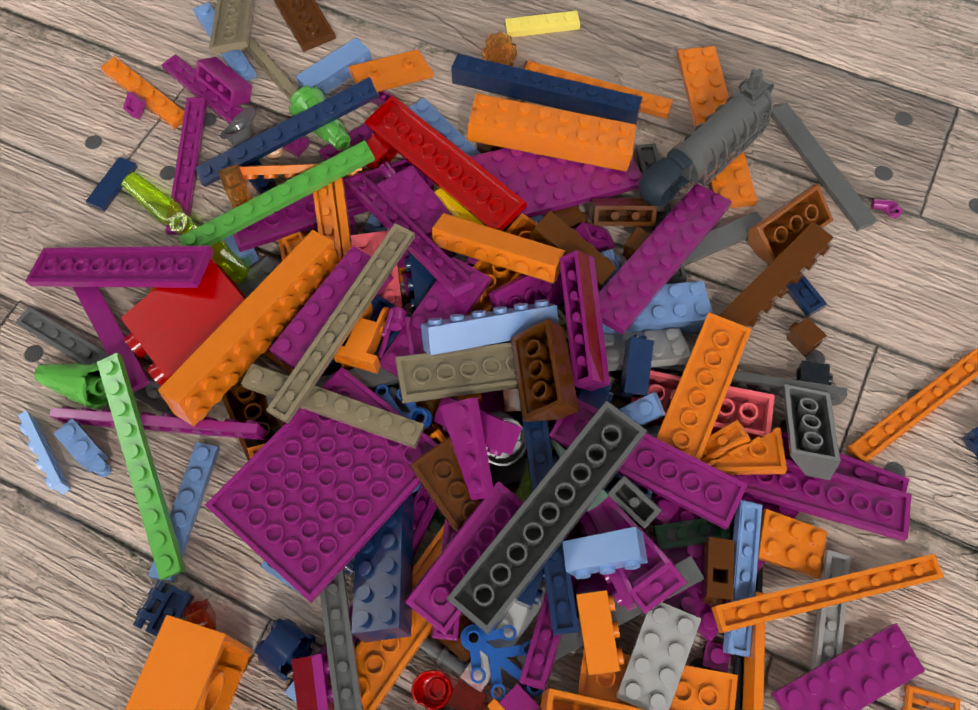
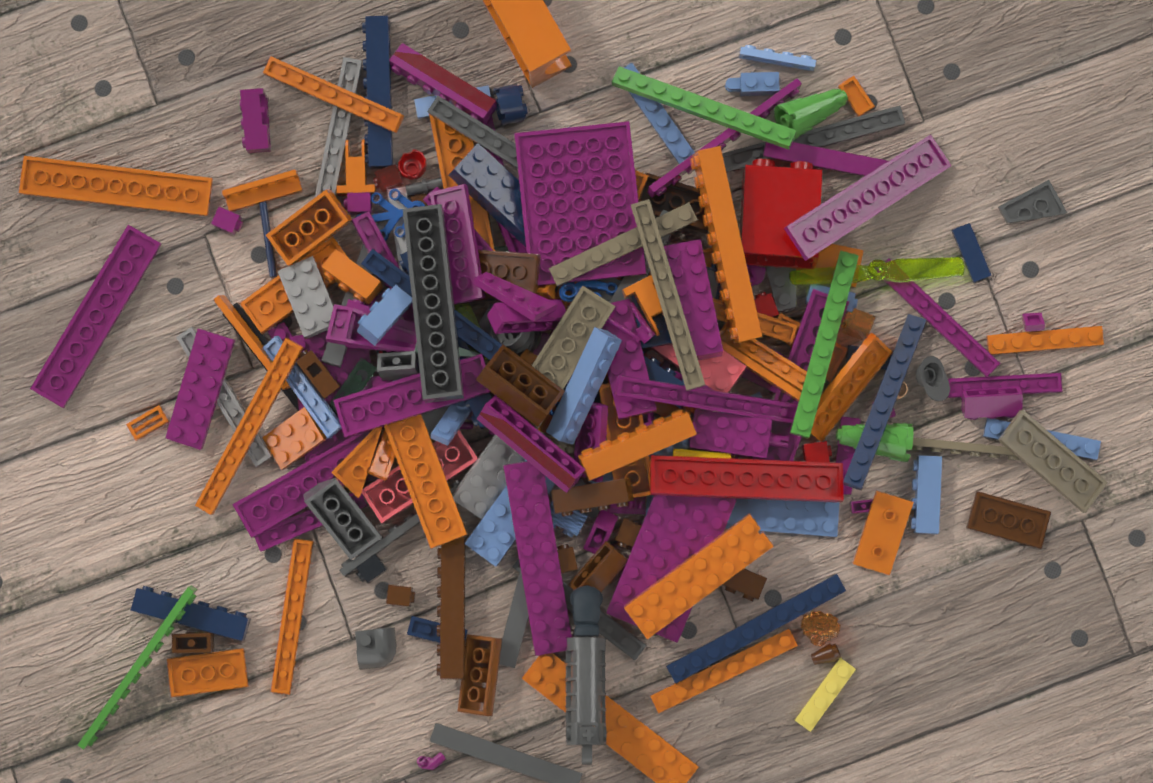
camera: 135 degrees right, 20 degrees up
(32, 173) = (1034, 204): none -> dark grey wing
(36, 355) = (856, 96): none -> orange tile
(172, 604) = (596, 57): dark blue plate -> none
(200, 612) = (578, 74): clear red brick -> none
(521, 43) = (827, 654): none -> reddish brown cone
(636, 366) = (475, 451): dark blue brick -> none
(862, 318) = (375, 647): none -> dark grey brick

